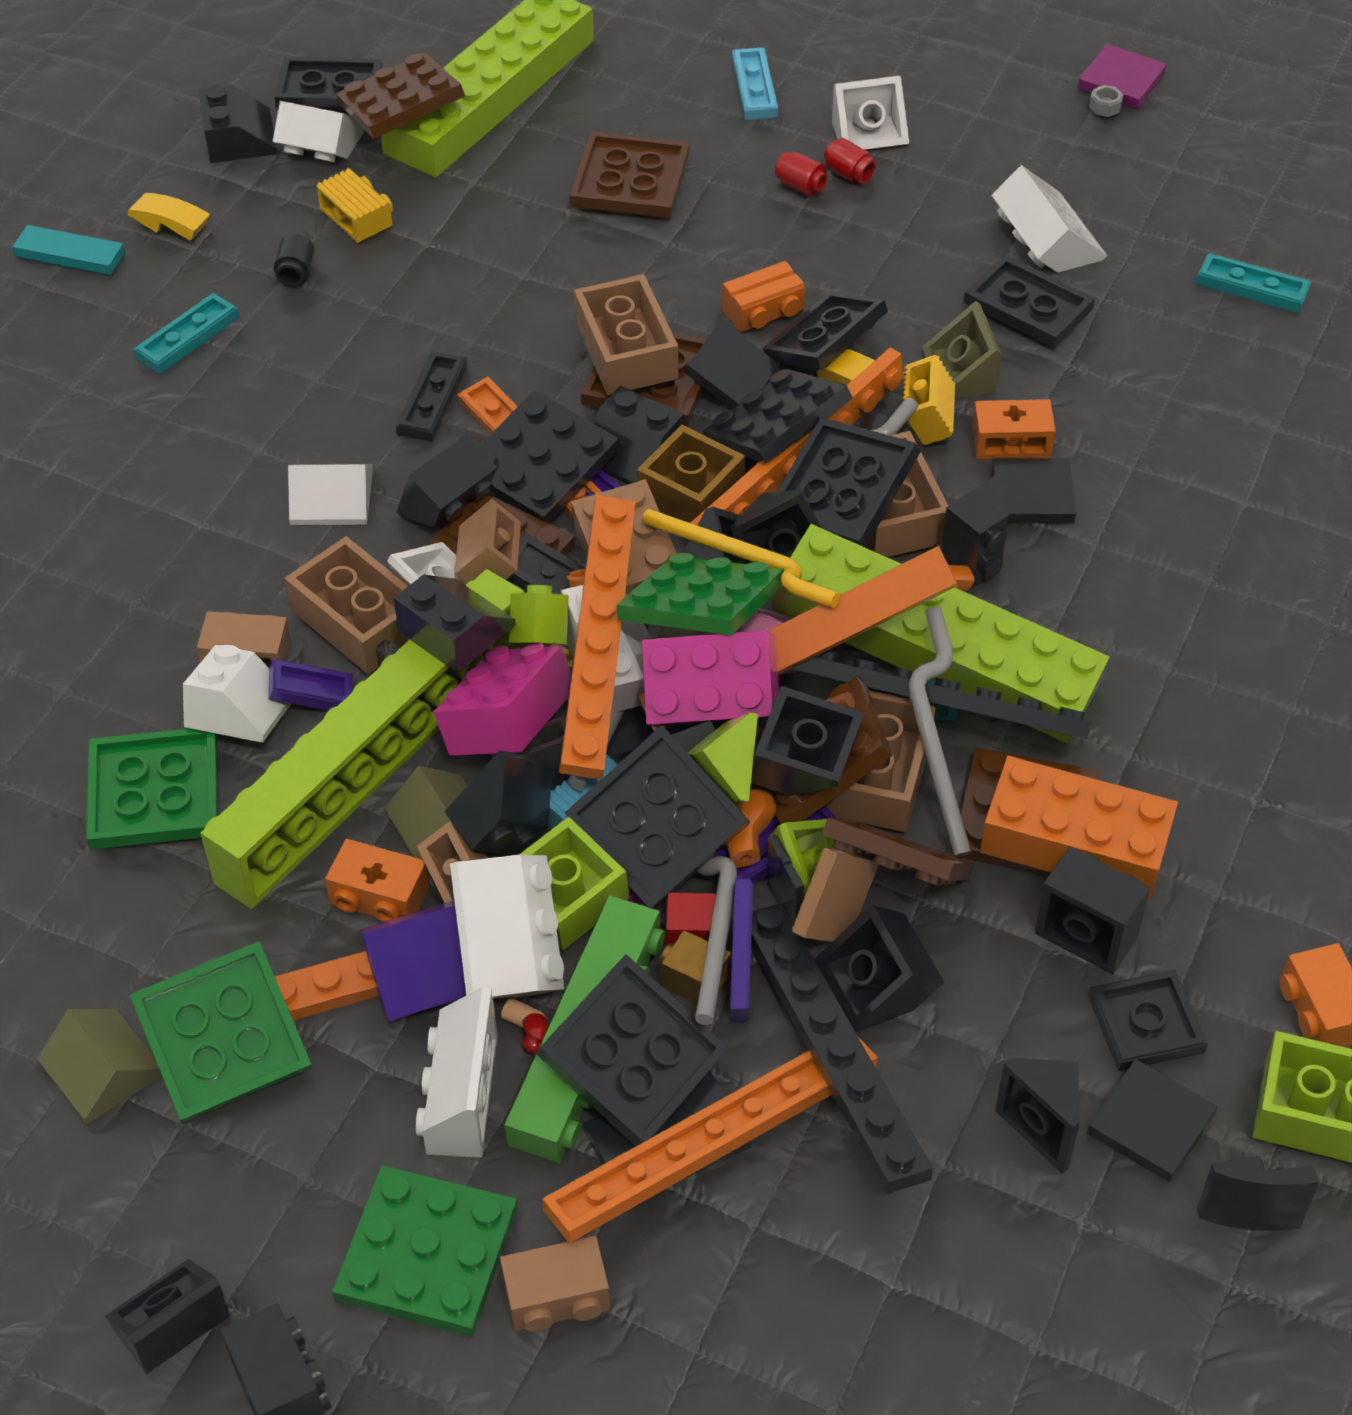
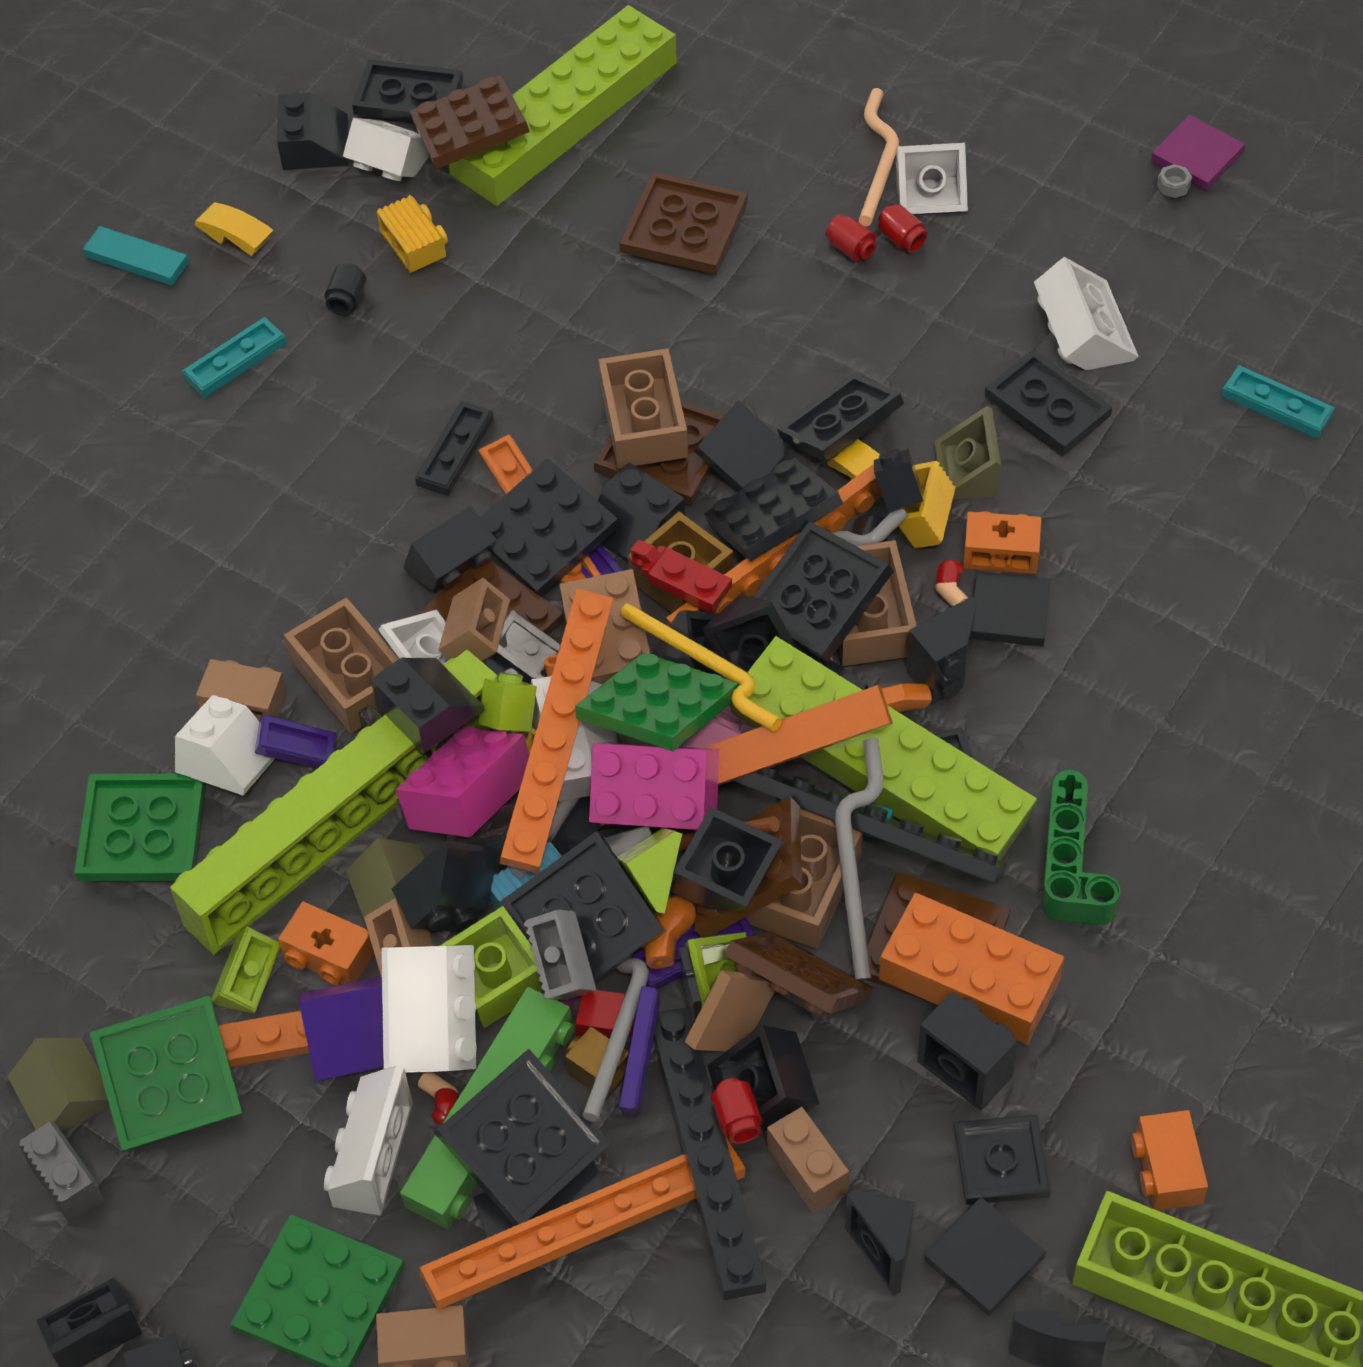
camera: 10 degrees right, 5 degrees up
(114, 1149) = (61, 1171): none -> flat silver brick
(291, 920) = (246, 971): none -> lime slope
(329, 494) = (343, 542): white slope -> none
(642, 856) = (560, 955): none -> flat silver brick
(696, 481) = (681, 575): none -> red hinge
(754, 83) = (826, 128): medium azure tile -> none
(763, 296) = (788, 373): orange brick -> none
(821, 100) = (887, 158): none -> light nougat piece
(860, 997) = (737, 1110): none -> red brick
(904, 370) = (898, 479): none -> black brick
(943, 1041) = (807, 1160): none -> medium nougat brick
(964, 470) = (947, 580): none -> arm
(1153, 744) = (1069, 845): none -> green beam

